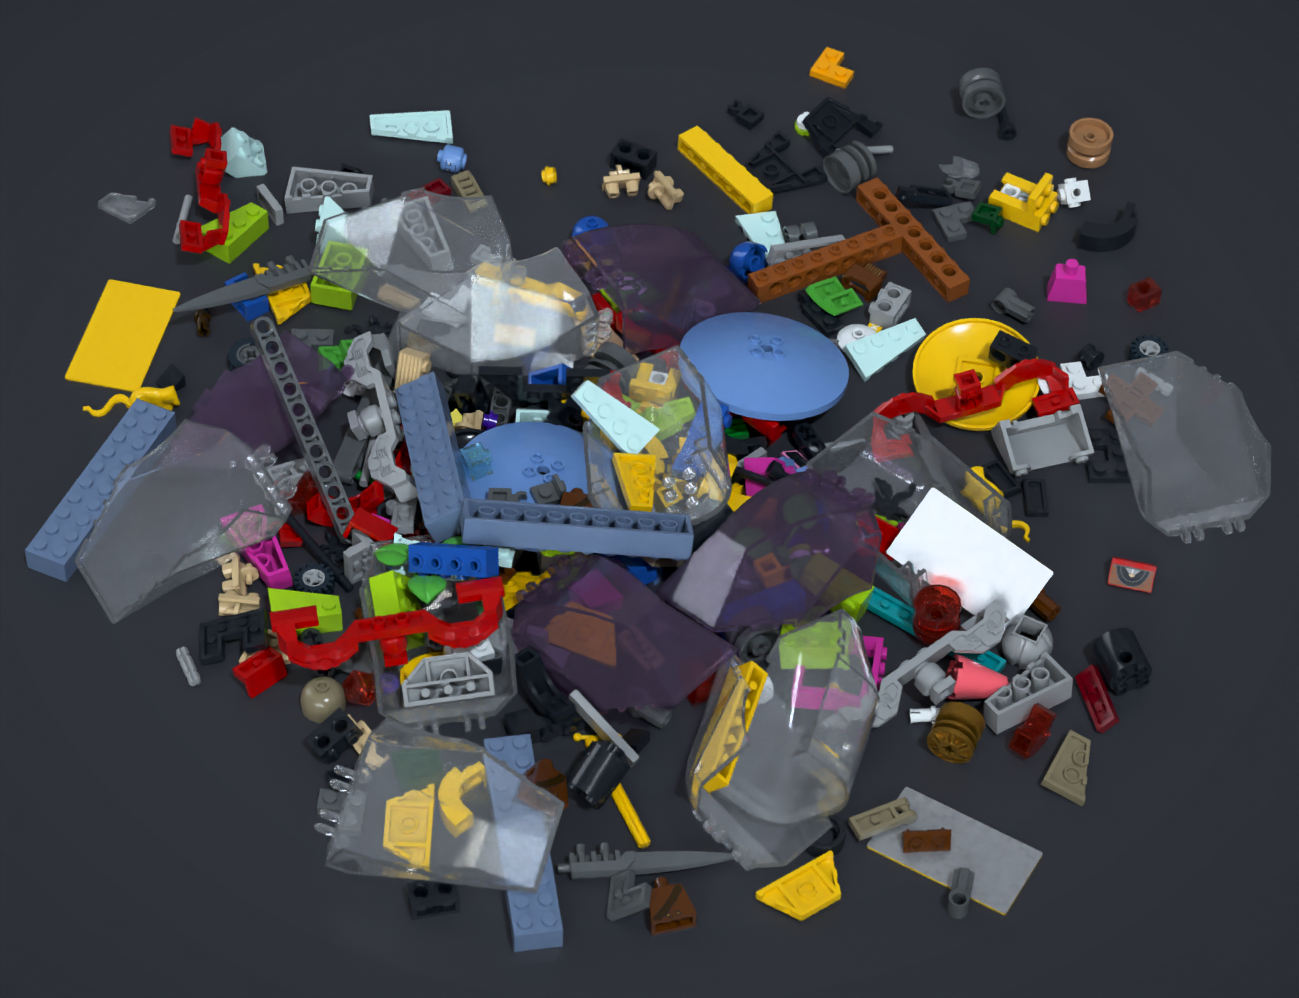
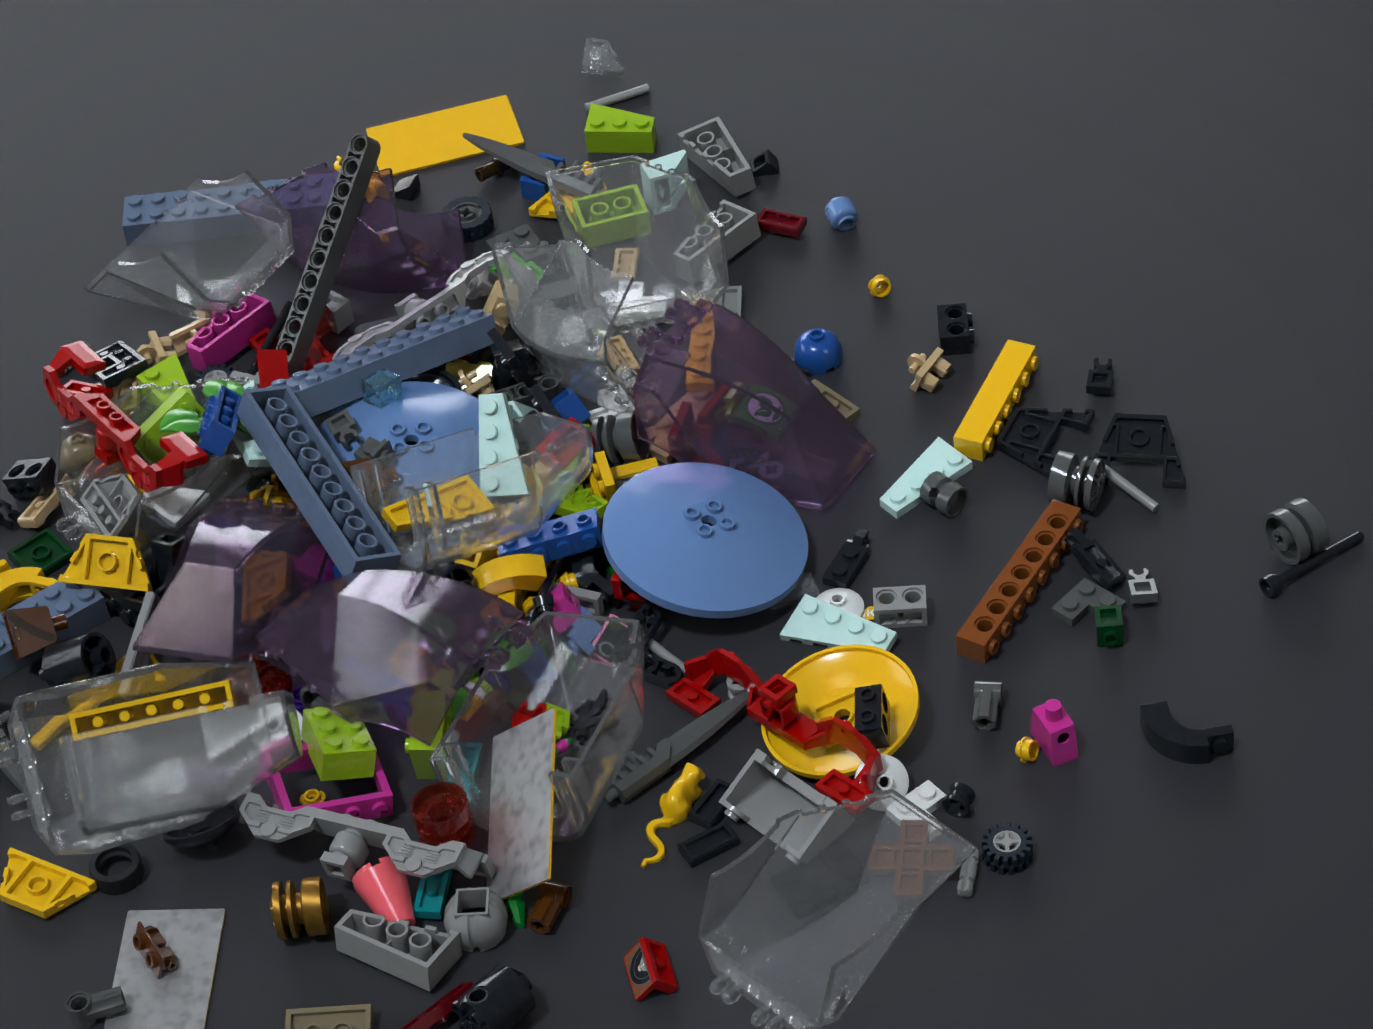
camera: 70 degrees right, 5 degrees down
(209, 175) = (660, 75): red piece -> none
(244, 154) = (726, 88): light aqua slope -> none
(270, 204) = (669, 140): light grey tile -> none
(424, 126) = (868, 172): light aqua wing -> none
(463, 180) = (813, 233): dark tan slope -> none
(489, 420) = (481, 387): dark purple plate -> none
(515, 708) = (108, 563): none -> yellow wing
(619, 180) = (914, 333): tan hips -> none
(747, 258) = (867, 472): blue cylinder -> none
(786, 251) = (920, 503): light grey plate -> none
(825, 262) = (918, 528): dark orange brick -> none
(828, 68) = (1236, 406): light orange plate -> none
(833, 297) = (875, 556): bright green slope -> none
(864, 279) = (927, 569): reddish brown piece -> none
(882, 818) = (161, 904): dark tan plate -> none
(924, 714) = (333, 889): white pin -> none
(961, 168) = (1172, 575): clear plate -> none
(1025, 201) = (1161, 644): yellow brick -> none
(1034, 733) = (346, 977): clear red brick -> none
(1068, 306) = (1027, 749): none -> yellow plate
(1073, 192) = (1212, 675): white brick -> none
(1089, 143) = (1306, 655): medium nougat wheel -> none
(1144, 294) = (1099, 805): clear red brick -> none

